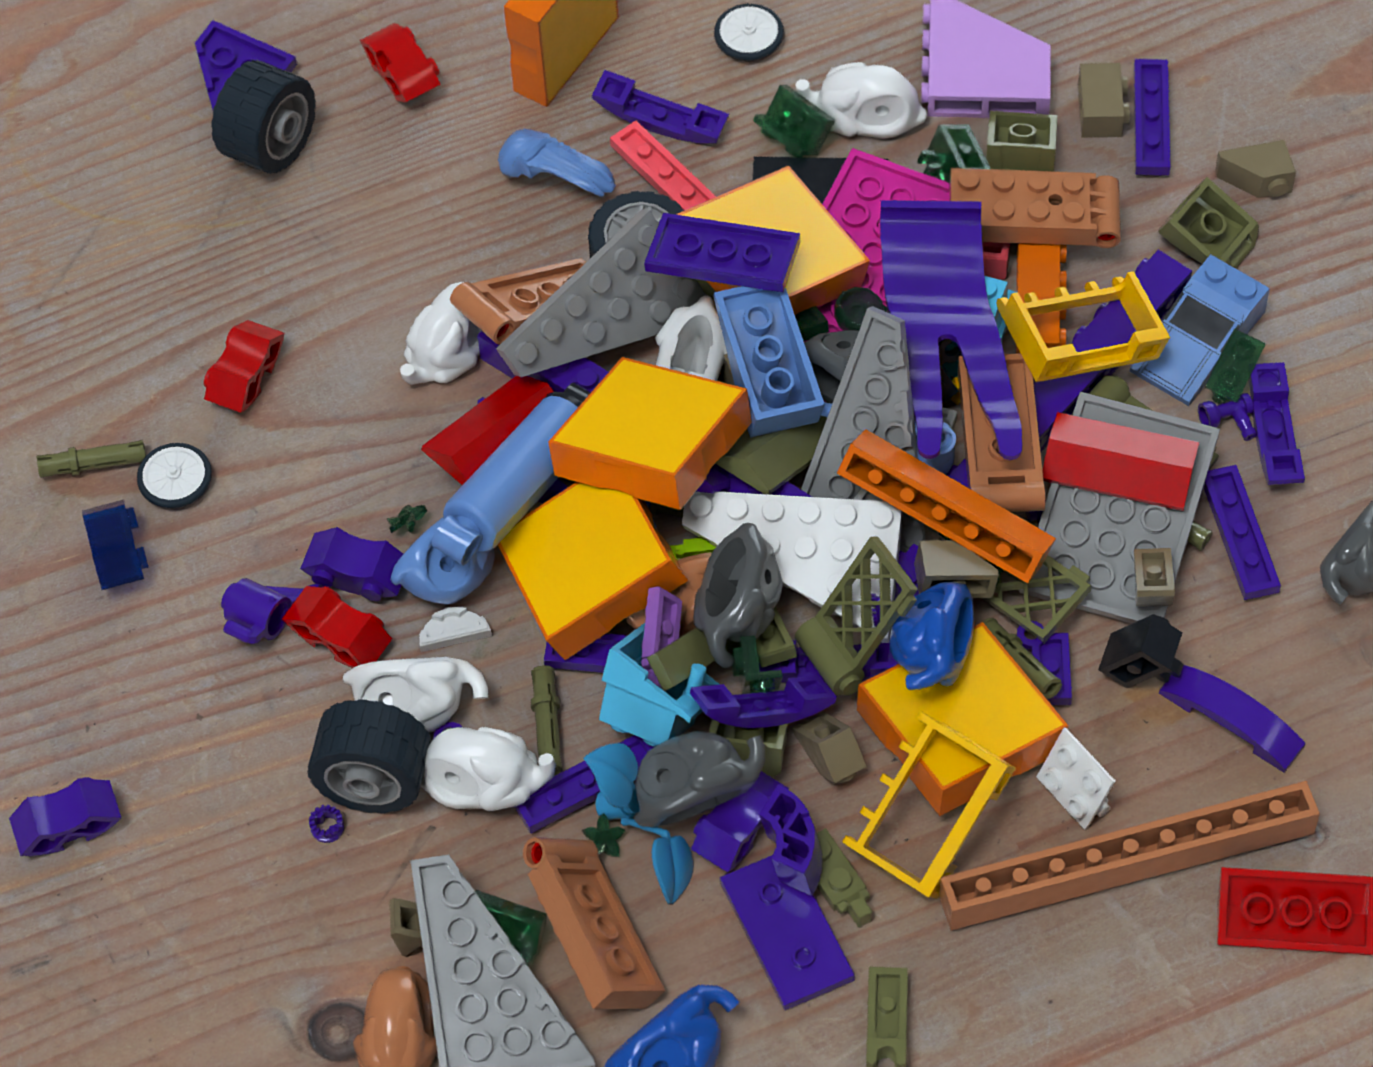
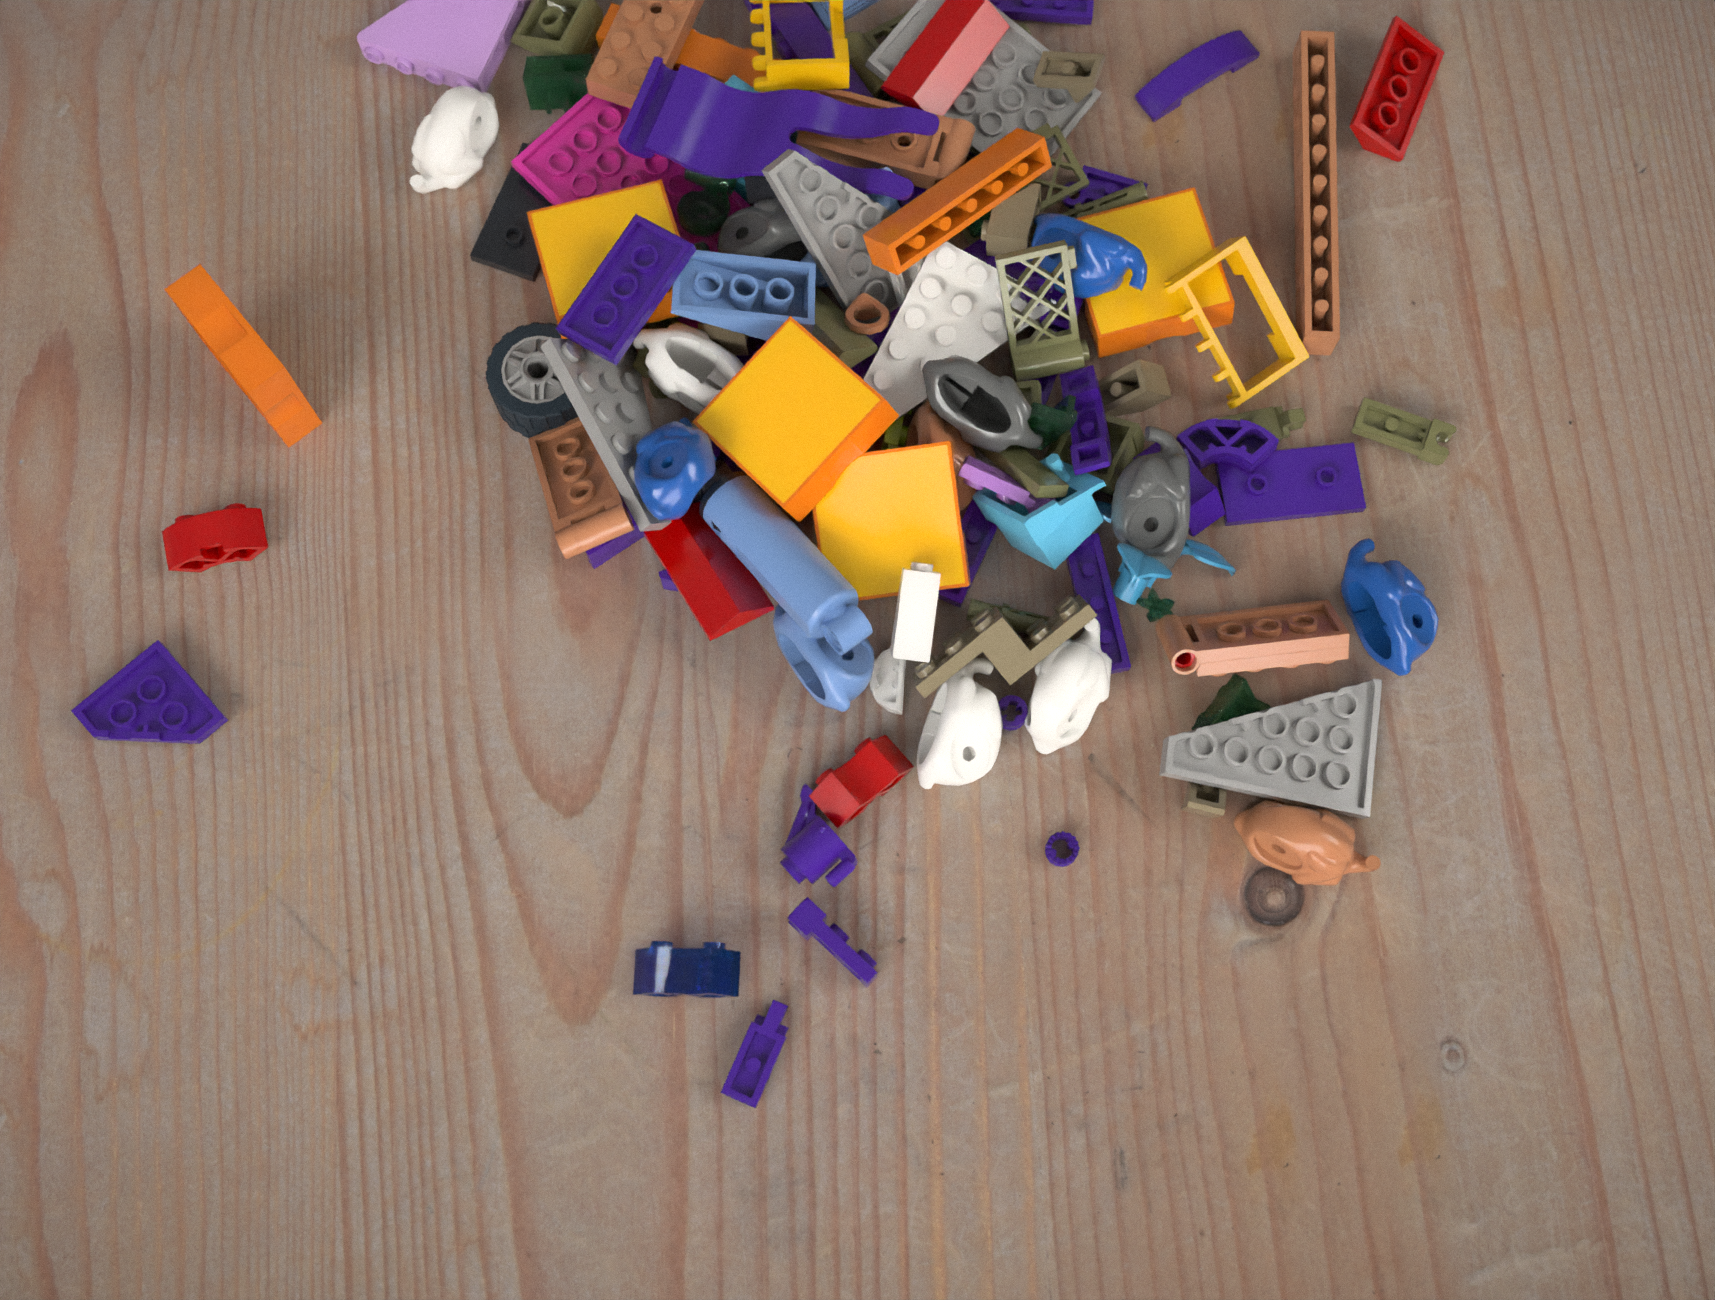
camera: 75 degrees left, 15 degrees up
(54, 626) = (757, 1056): none -> dark purple hinge
(73, 812) = (983, 1095): dark purple brick -> none
(81, 460) = (571, 973): olive pin -> none
(174, 475) = (622, 893): white wheel -> none
(178, 651) = (810, 921): none -> dark purple plate
(238, 372) = (523, 790): red brick -> none
(263, 116) = (235, 685): black wheel -> none
(352, 564) = (796, 745): dark purple brick -> none
(369, 756) = (1029, 783): black wheel -> none
(407, 516) = (757, 684): clear green plant -> none
(440, 343) = (568, 591): white piece -> none
(497, 602) = (915, 613): none -> white slope
(503, 692) = (1002, 644): none -> dark tan bracket
(536, 152) = (392, 441): medium blue hair -> none
(561, 350) = (673, 468): none -> blue piece
(658, 114) = (383, 321): dark purple slope -> none
(659, 166) = (454, 337): coral plate -> none
(748, 32) = (320, 213): white wheel -> none
(795, 122) = (451, 204): clear green bracket -> none
(813, 473) = (866, 308): none -> nougat piece
(1076, 779) = (1235, 203): white hinge -> none
(1142, 652) = (1130, 111): black brick -> none

